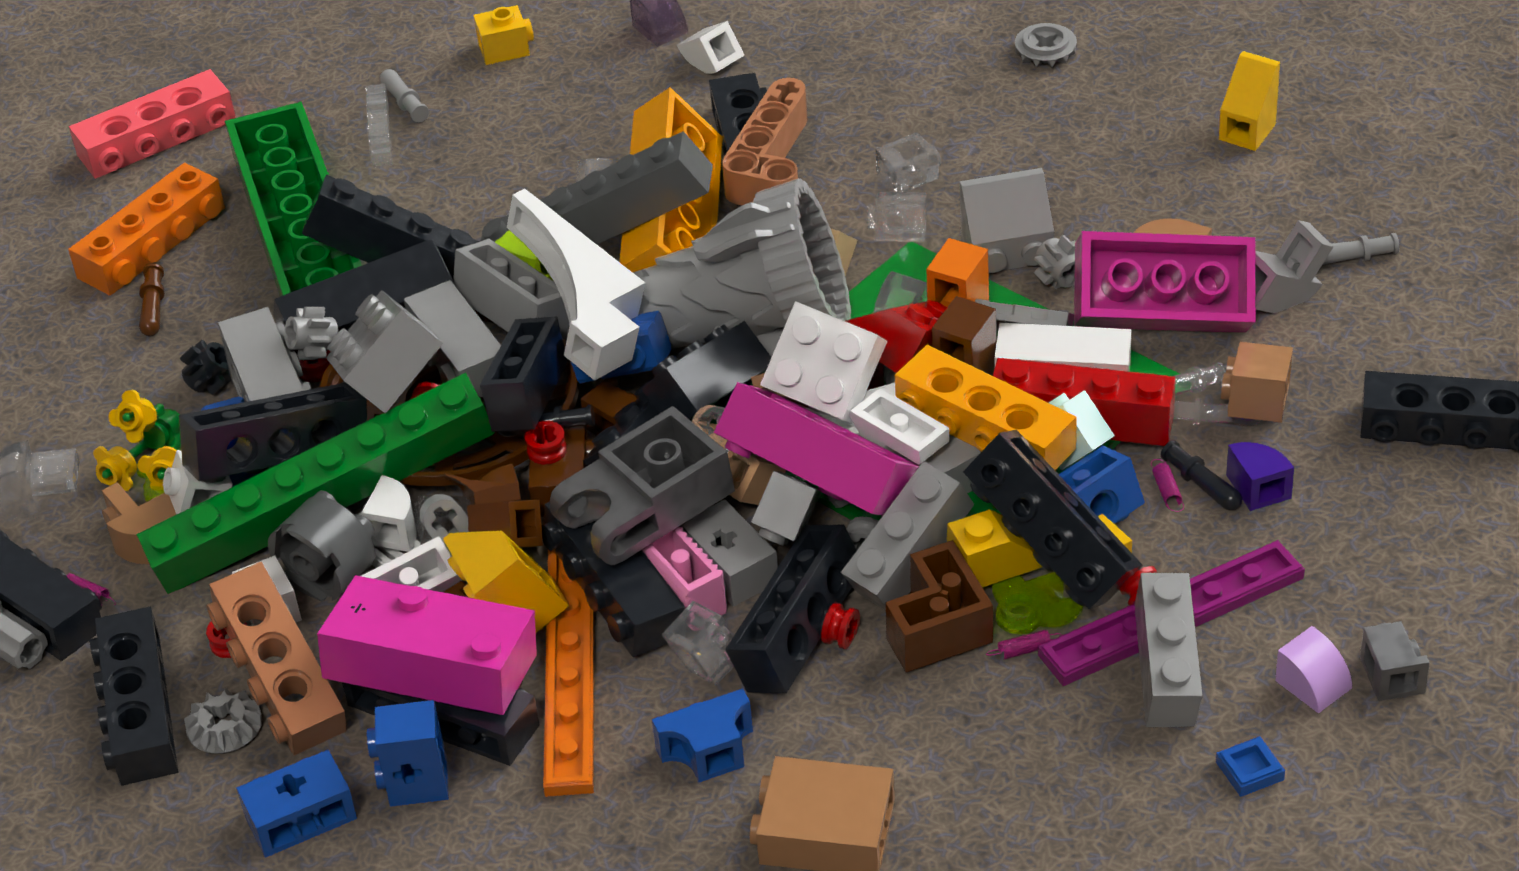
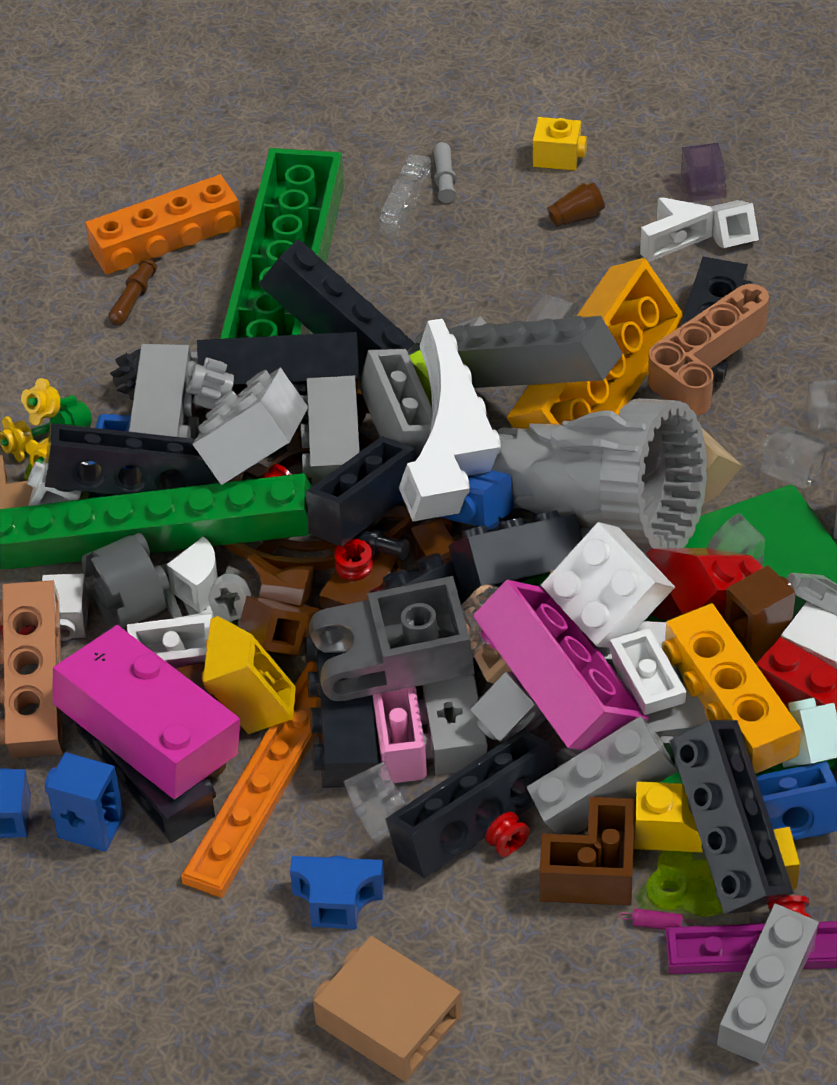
camera: 25 degrees right, 5 degrees up
(152, 123) = (223, 125): coral brick -> none
(554, 80) = (577, 205): none -> reddish brown cone
(662, 66) = (676, 227): none -> white slope
(958, 271) = (791, 543): orange brick -> none

